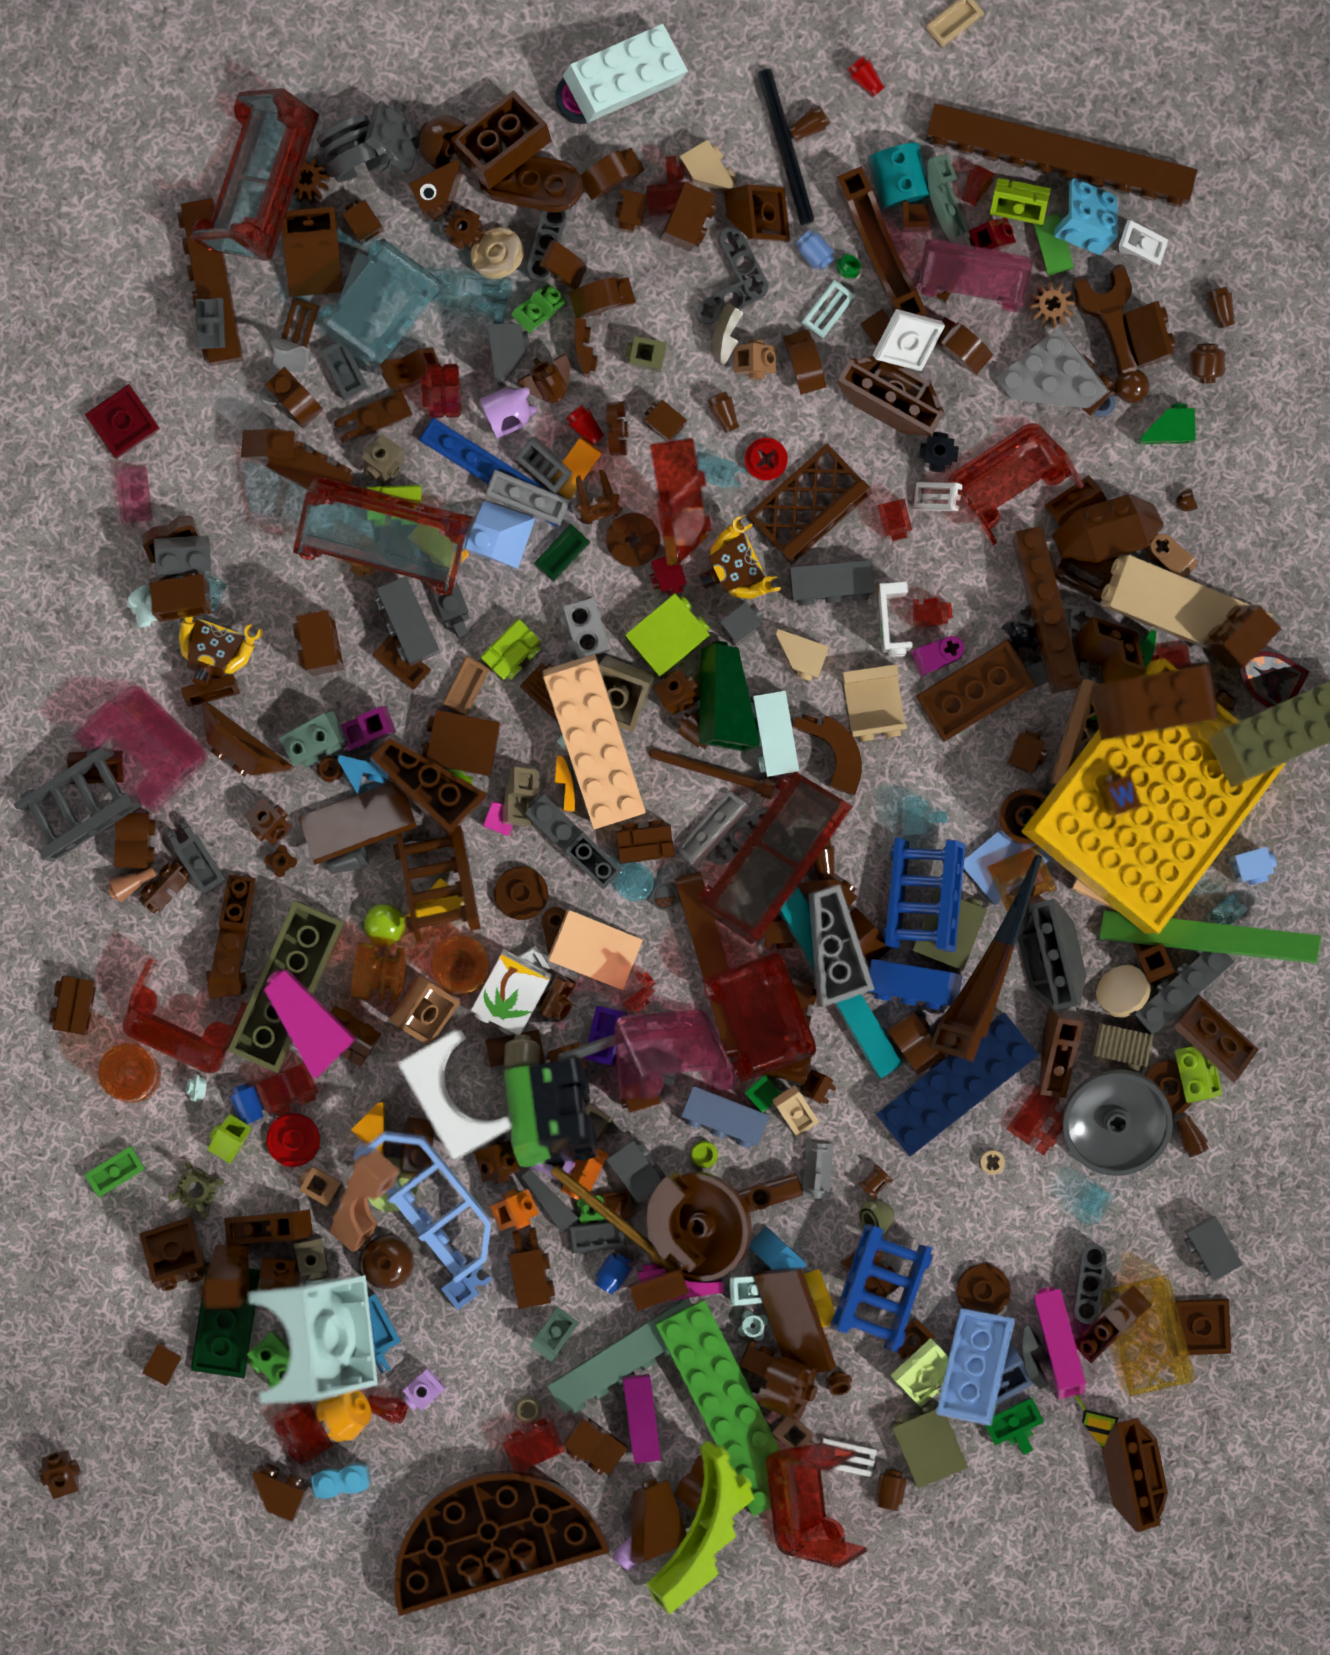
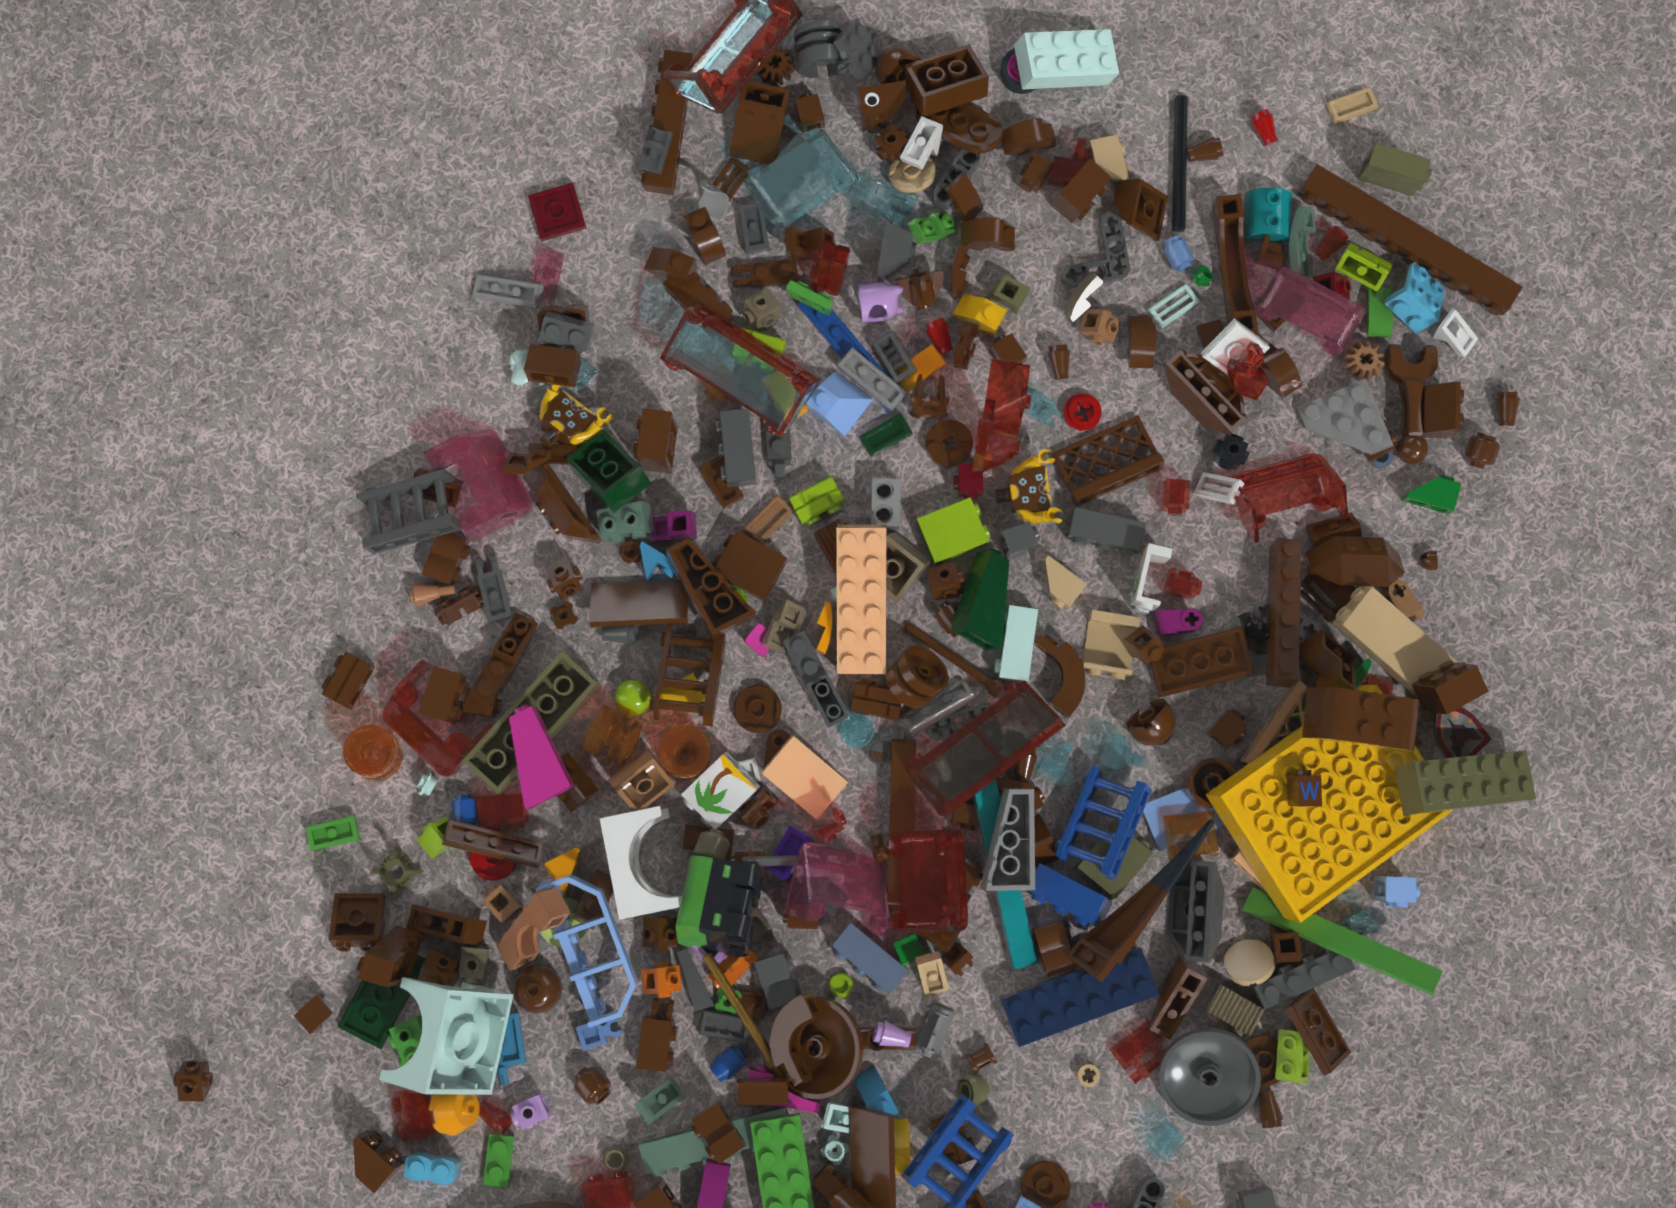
camera: 20 degrees right, 5 degrees down
(99, 528) = (507, 291): none -> light grey tile
(183, 712) = (523, 463): none -> reddish brown slope
(184, 988) = (443, 695): none -> reddish brown brick
(278, 691) = (608, 471): none -> dark green brick
(289, 1127) = (492, 843): none -> reddish brown tile
(406, 1450) = (498, 1160): none -> bright green plate
(419, 427) = (801, 292): none -> bright green plate
(478, 1342) = (592, 1085): none -> reddish brown head
(498, 216) = (922, 143): none -> white slope
(620, 386) = (981, 312): none -> yellow slope
(626, 1345) = (718, 1131): none -> reddish brown brick
(680, 805) = (917, 677): none -> reddish brown wheel
(699, 1002) = (879, 851): none -> reddish brown arm
(771, 1188) = (890, 1035): none -> lavender cone
(858, 853) = (1056, 768): none -> clear light blue brick
(916, 697) = (1149, 650): none -> reddish brown brick
(930, 362) = (1246, 372): none -> clear red brick
(950, 771) = (1155, 724): none -> reddish brown cylinder
(1021, 82) = (1395, 169): none -> olive brick

